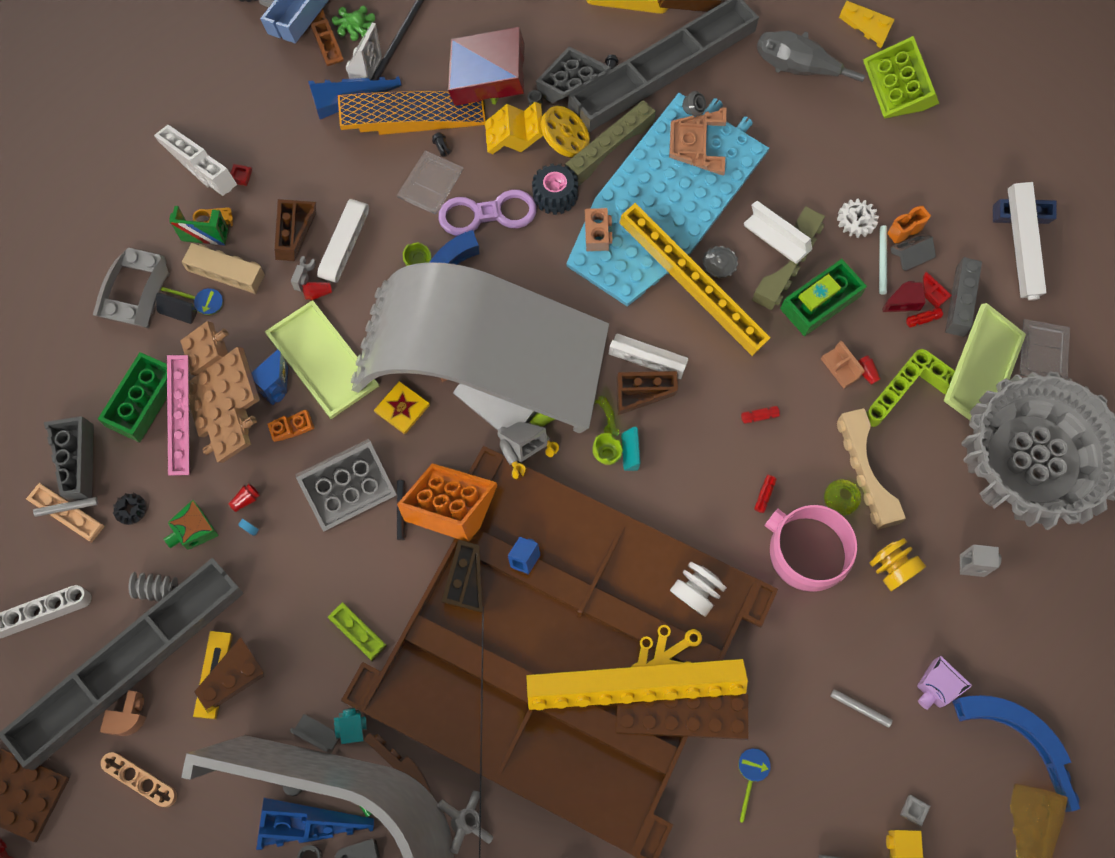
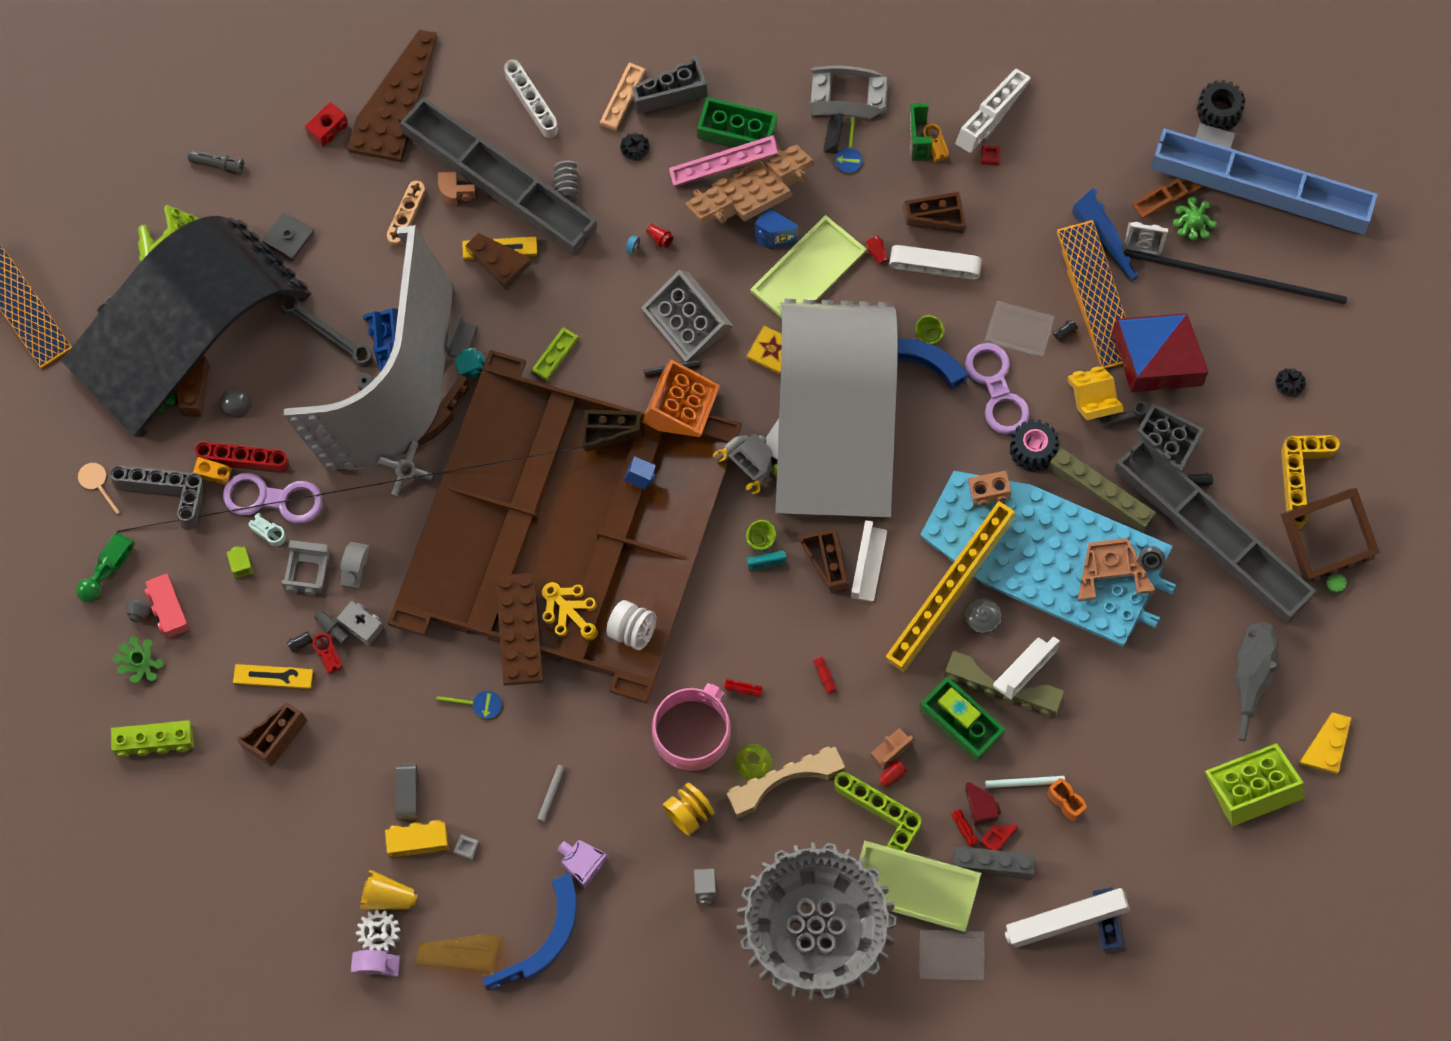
camera: 85 degrees right, 0 degrees up
(65, 506) = (626, 96): light grey bar -> none
(190, 527) = (624, 198): torso -> none
(223, 268) = (882, 164): tan brick -> none
(290, 426) = (735, 258): orange slope -> none
(300, 275) = (890, 232): light grey plate -> none
(564, 131) = (1098, 434): yellow wedge -> none
(610, 428) = (783, 538): clear neon green piece -> none
(636, 684) = (536, 583): yellow brick -> none
(848, 218) = (1059, 747): white gear -> none
(914, 250) = (1040, 811): dark grey panel -> none

